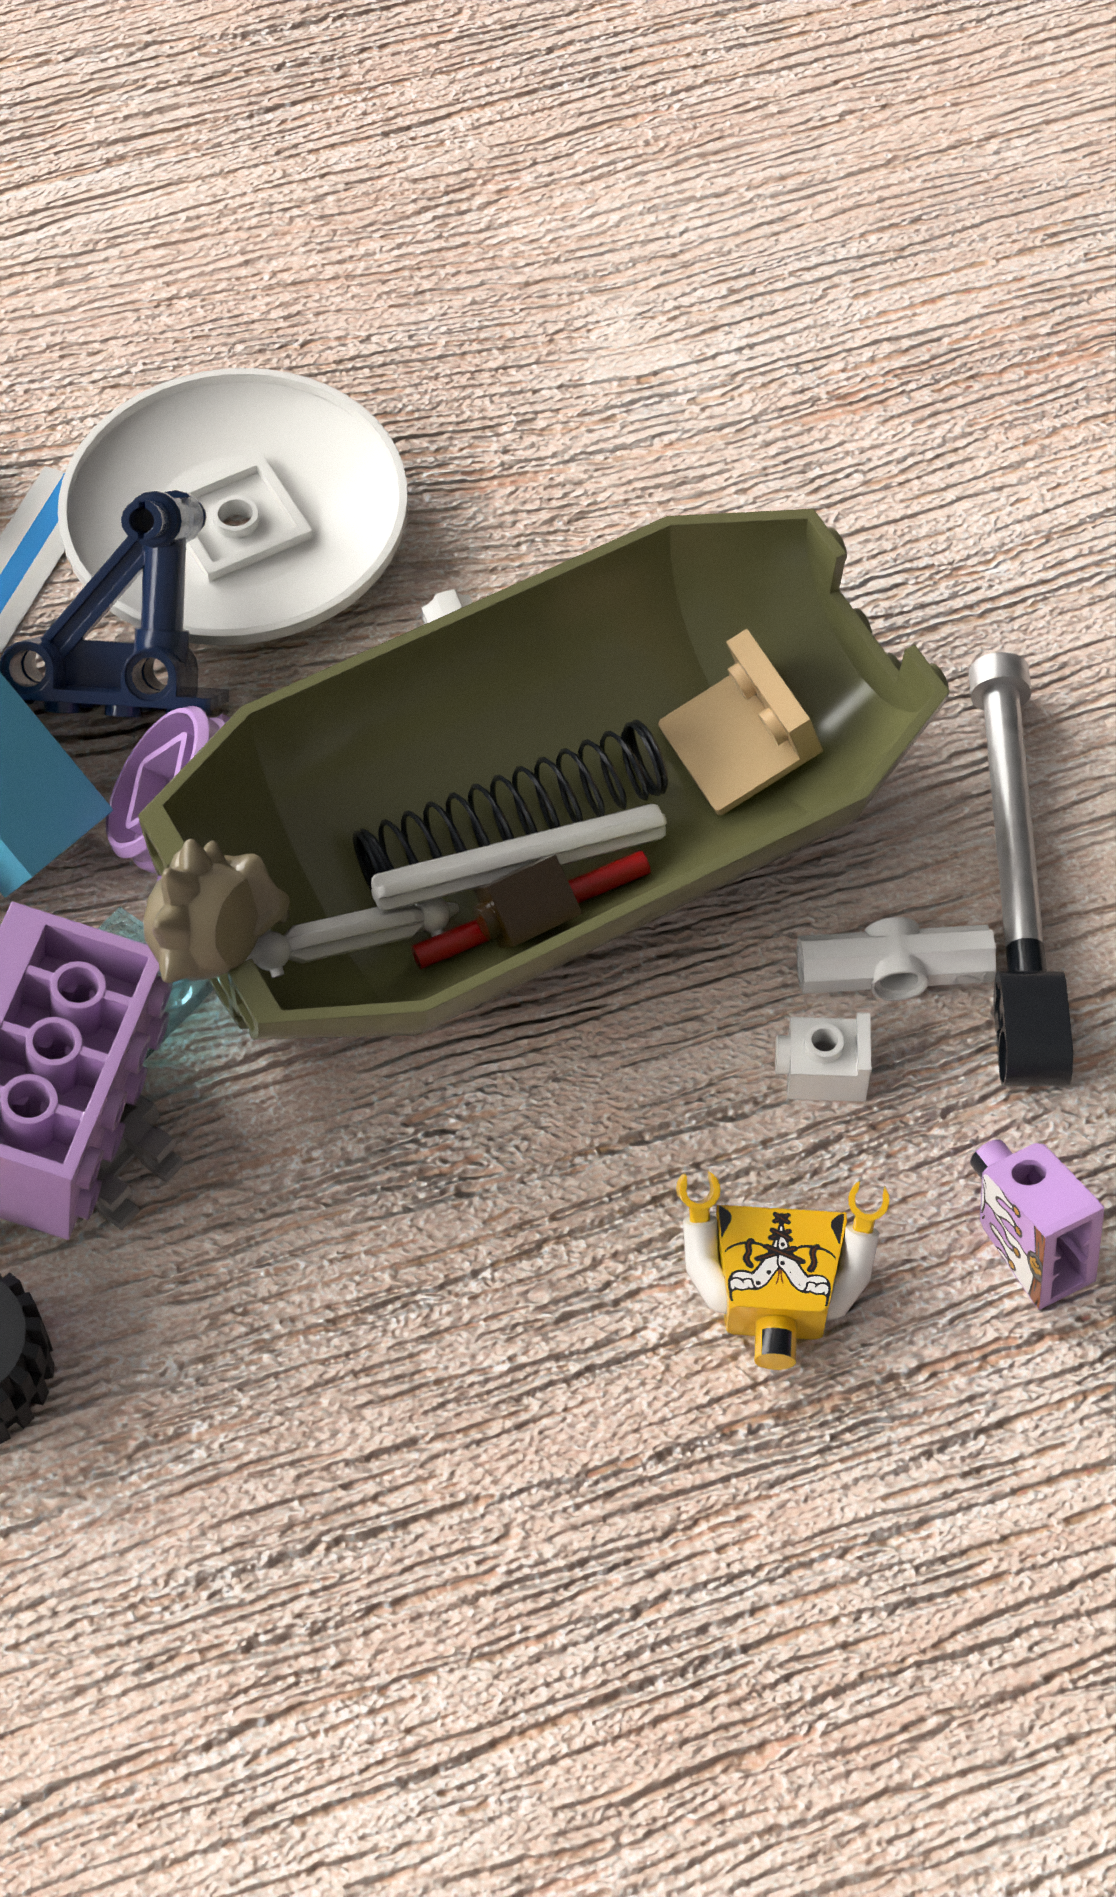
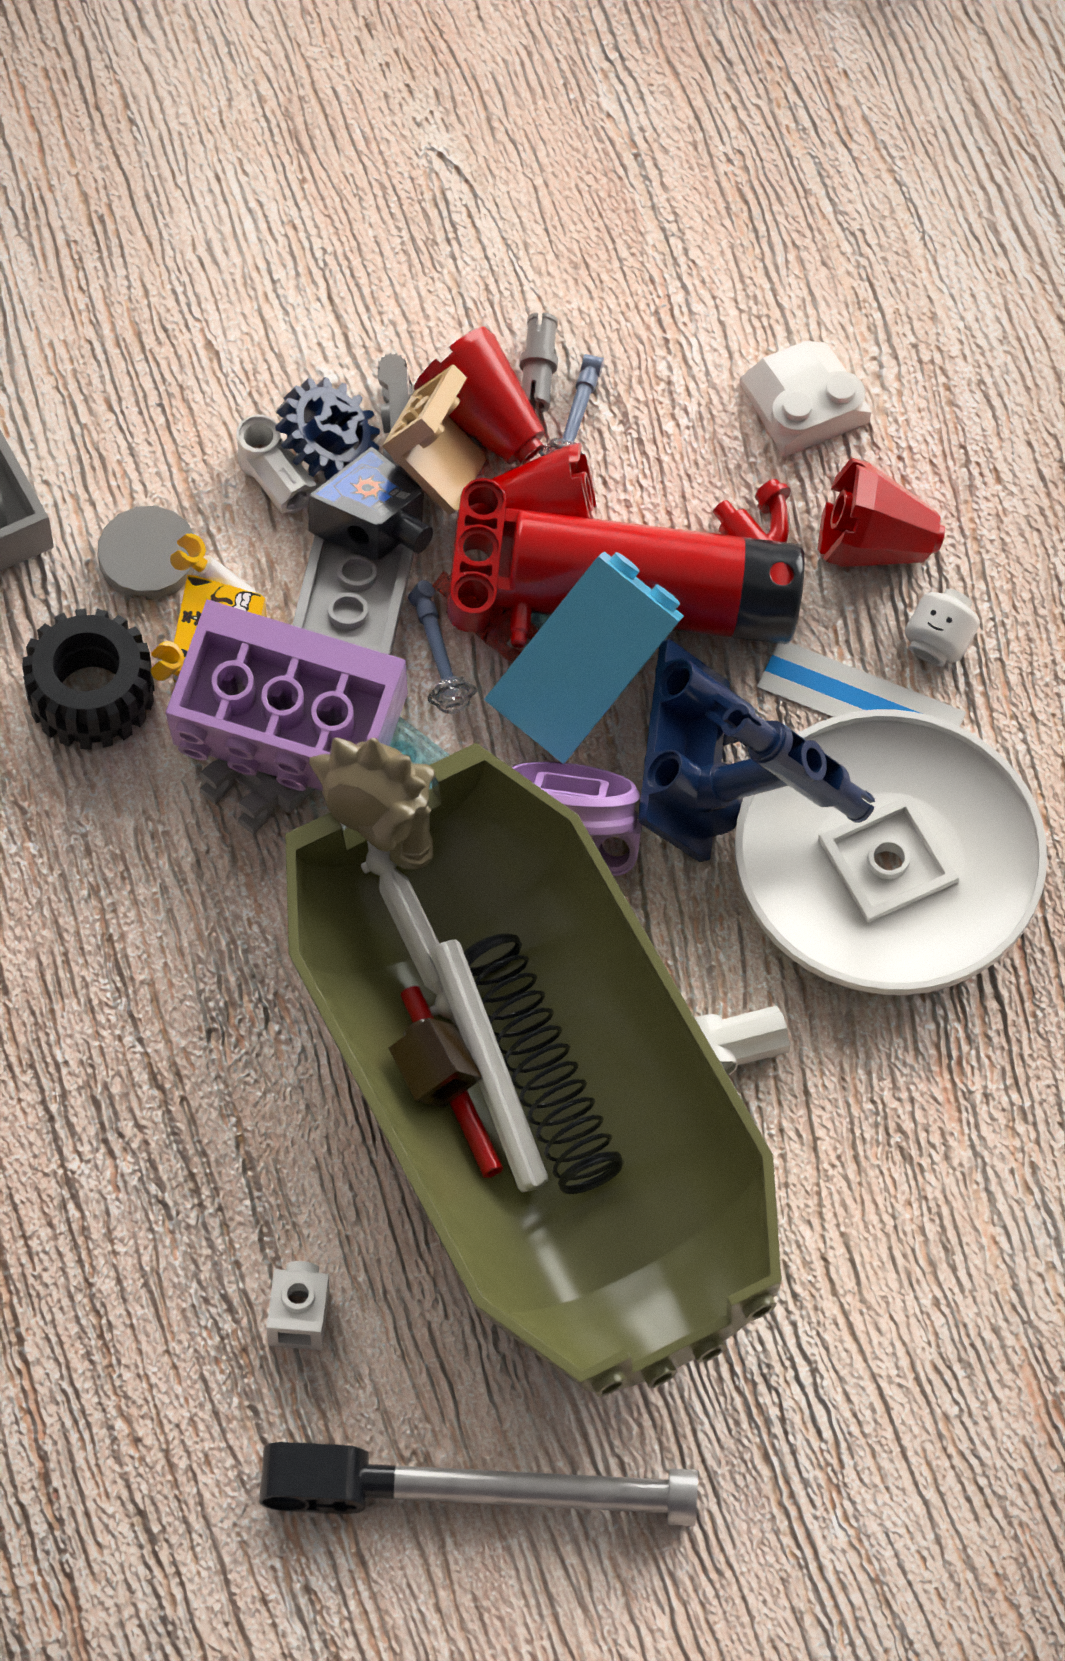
camera: 90 degrees right, 5 degrees up
(741, 730) = (619, 1255): tan bracket -> none
(778, 1268) = (106, 1245): torso -> none
(896, 958) = (391, 1374): white piece -> none
(1039, 1219) = (125, 1446): lavender torso -> none

